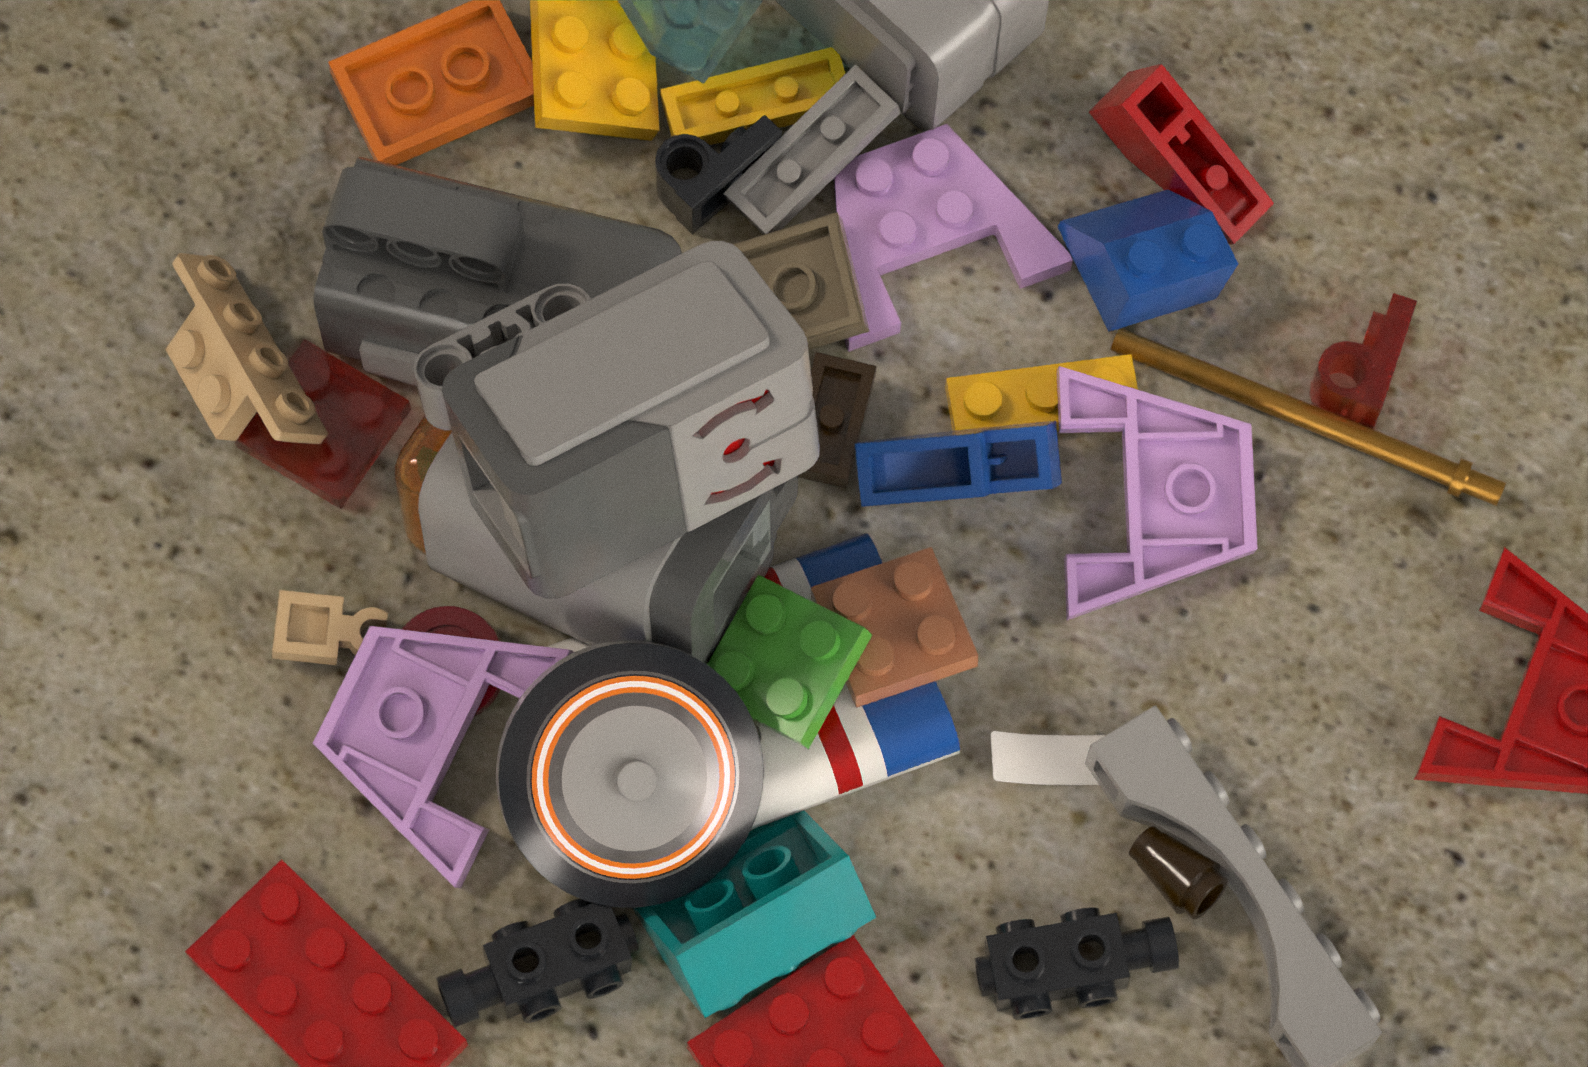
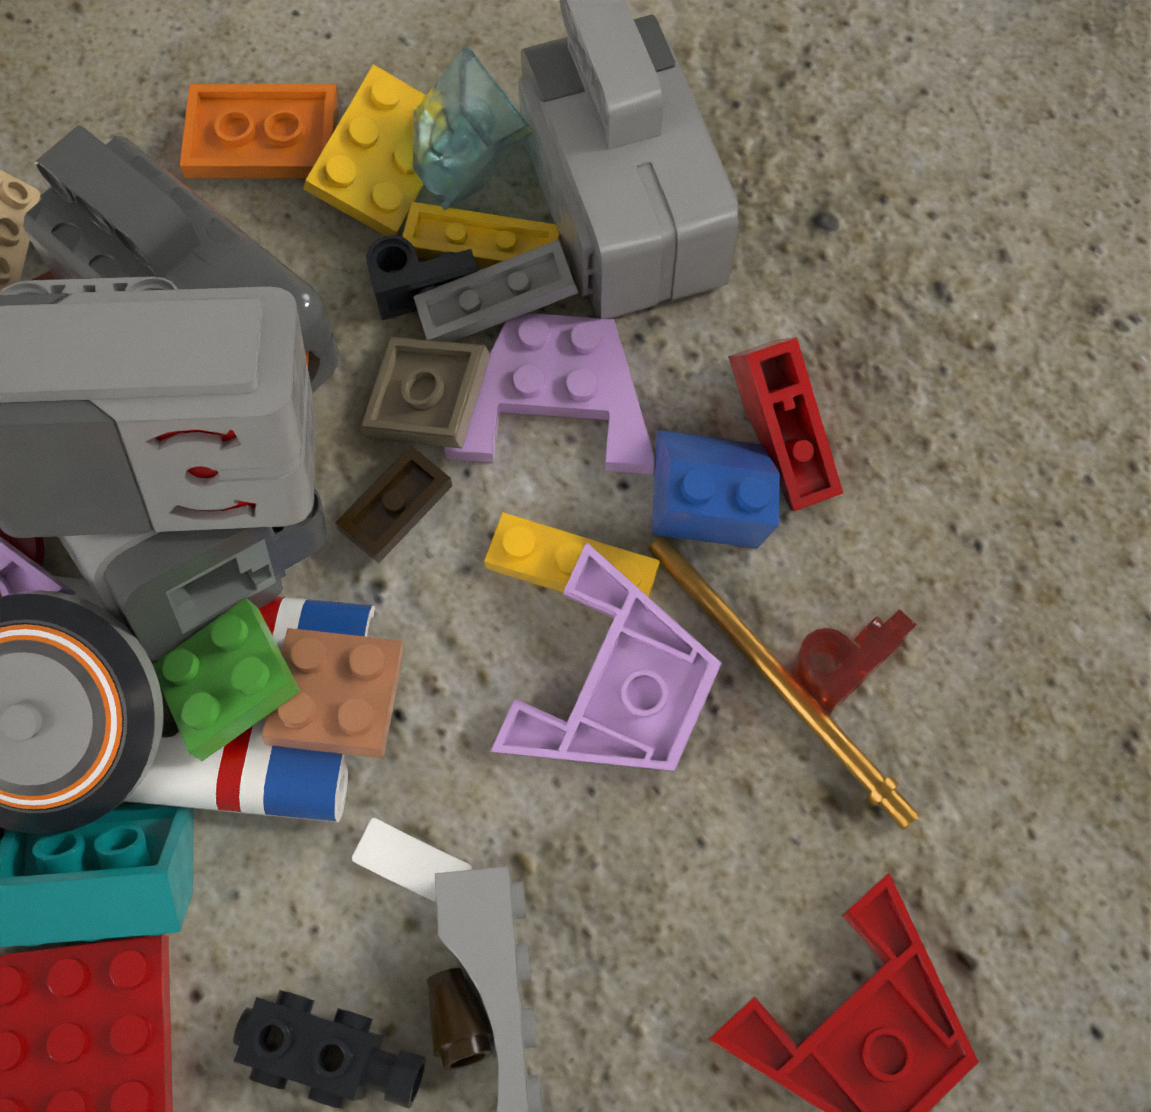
camera: 30 degrees right, 0 degrees up
(959, 464) = (472, 585): blue slope -> none

